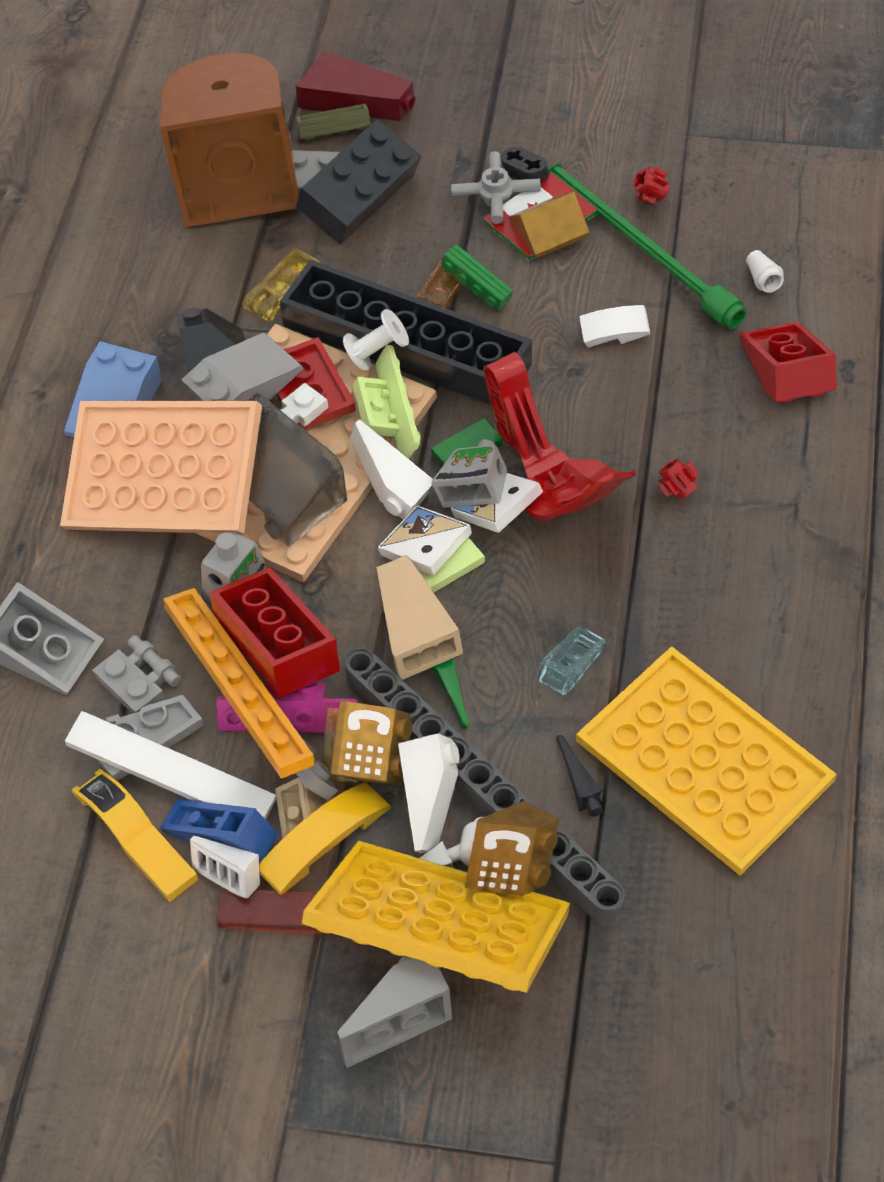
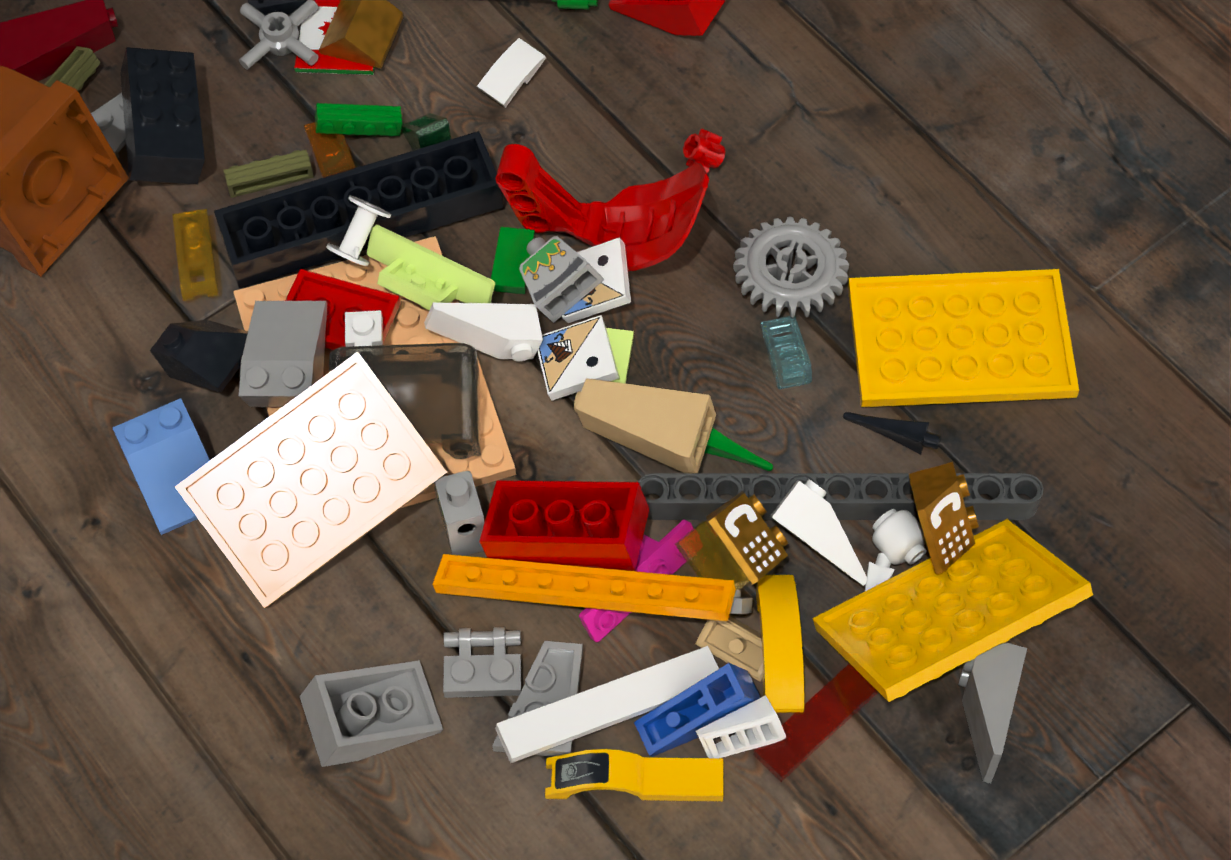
camera: 50 degrees left, 5 degrees up
(385, 269) = (268, 173): none -> olive piece
(510, 319) = (426, 131): none -> clear green slope
(637, 616) = (801, 287): none -> light grey gear

